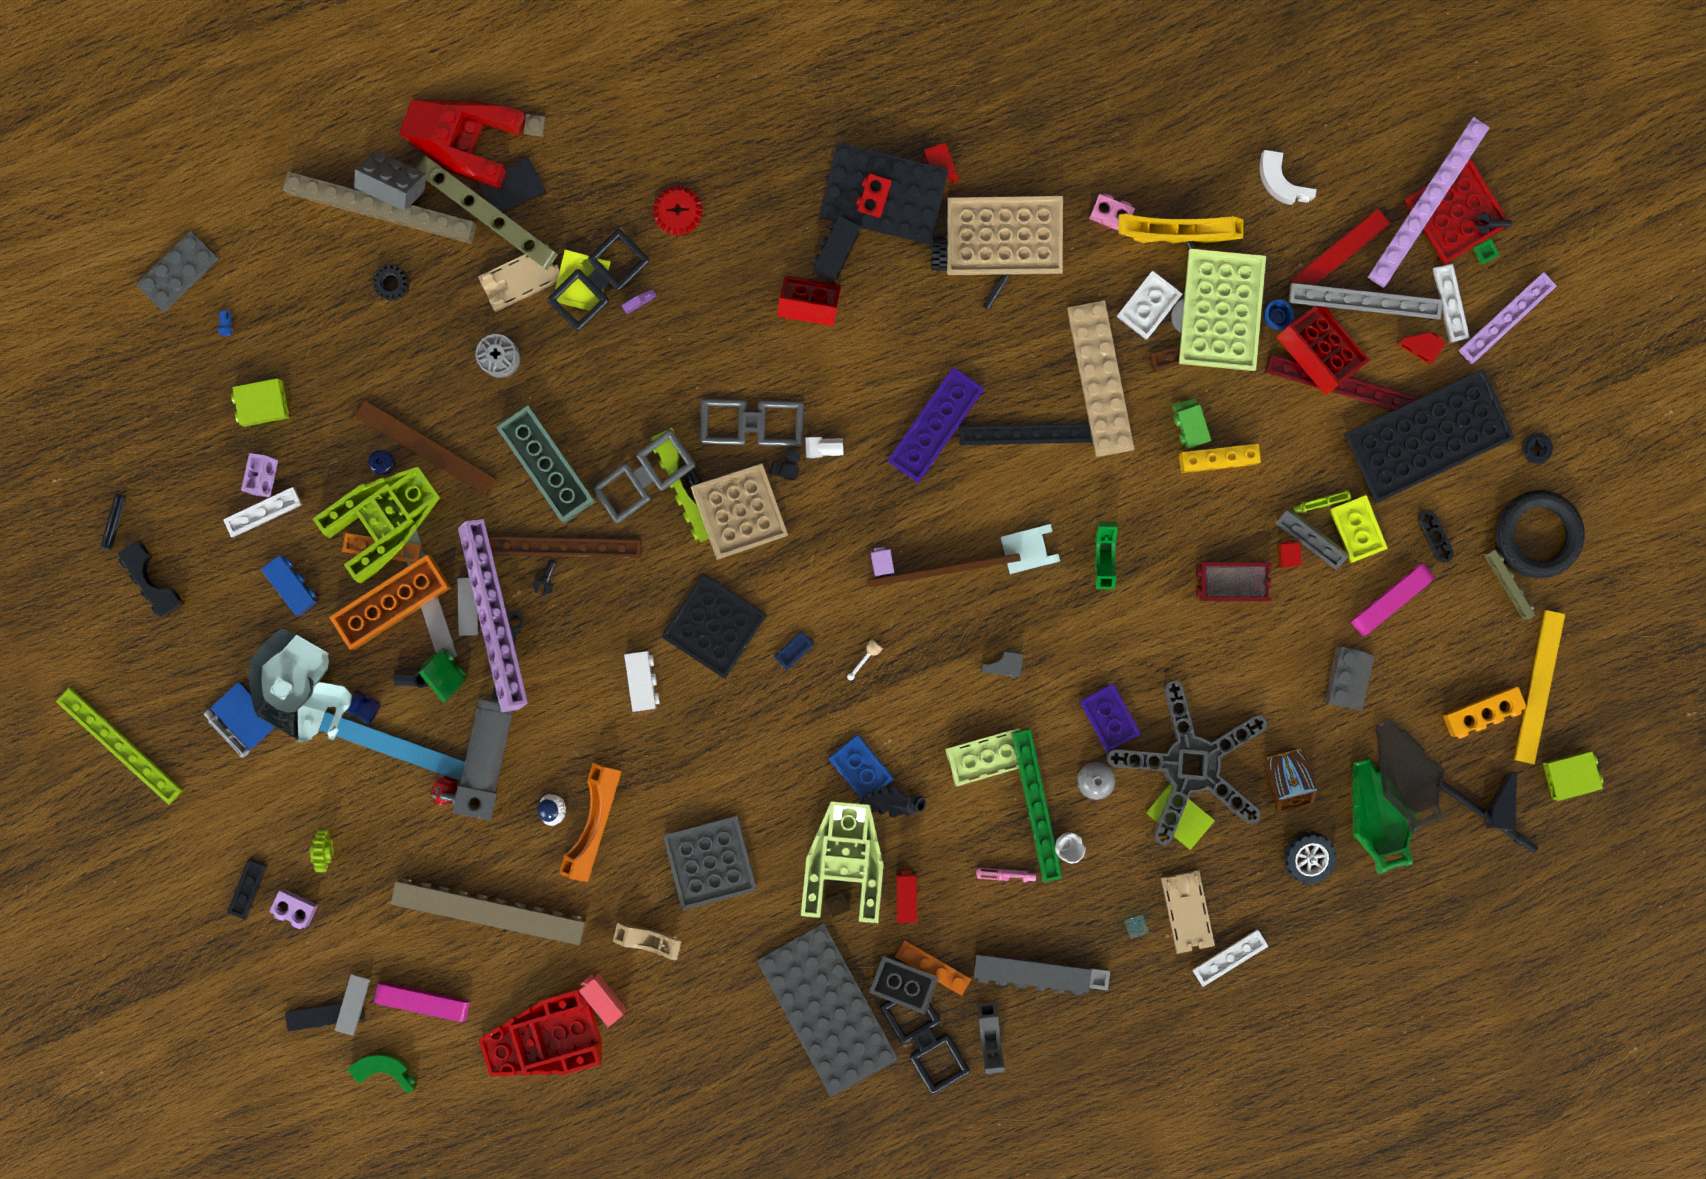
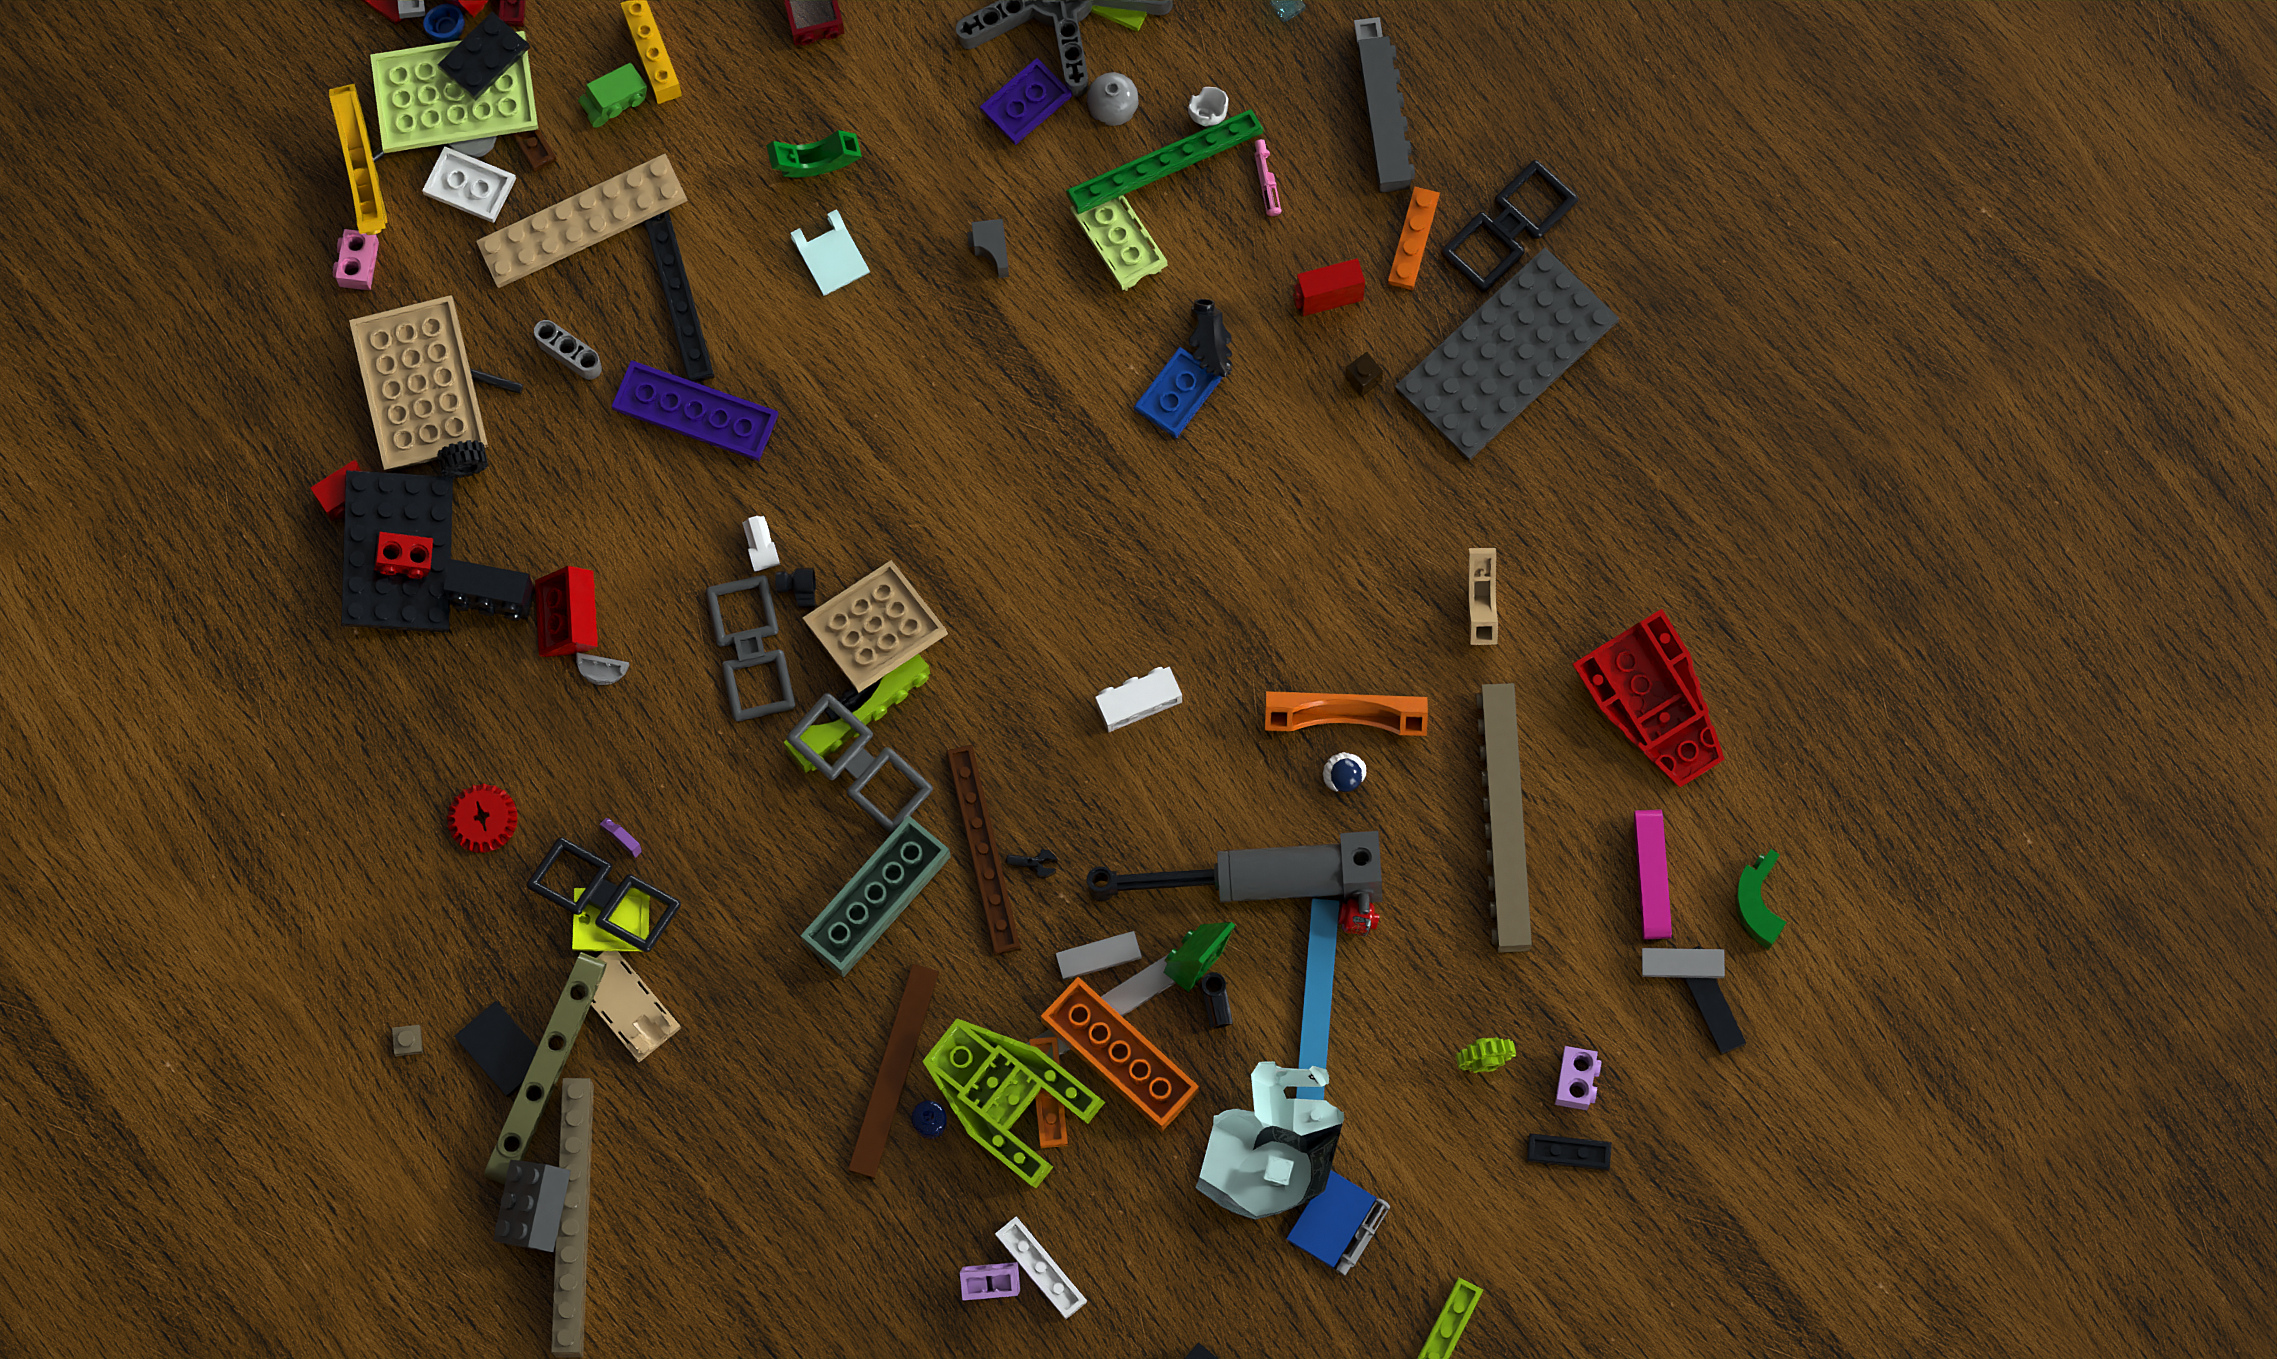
camera: 100 degrees left, 15 degrees down
(260, 402) = (888, 1311): lime brick -> none
(290, 585) = (1132, 1201): blue brick -> none
(363, 707) = (1275, 1048): clear blue wheel -> none
(399, 291) = (679, 1192): black tyre -> none
(451, 129) = (443, 1151): red wedge -> none
(492, 615) = (1099, 906): lavender brick -> none
(505, 363) = (745, 1014): light grey wheel -> none
(602, 999) = (1577, 634): coral brick -> none
(709, 862) = (1356, 549): dark grey plate -> none
(714, 626) = (1038, 626): black tile -> none
(763, 314) = (600, 669): none -> light grey tile
(794, 650) = (1044, 516): dark blue tile -> none
(845, 851) = (1293, 376): yellowish green wedge -> none
(873, 648) = (1014, 415): hinge -> none
(882, 562) = (896, 427): lavender brick -> none
(904, 985) = (1445, 260): dark grey brick -> none
(944, 570) = (886, 350): reddish brown tile -> none
(990, 1037) = (1472, 148): dark grey arch -> none
(995, 349) = (562, 339): none -> light grey beam
(1242, 336) = (483, 56): none -> black plate
(1275, 182) = (269, 70): white arch -> none

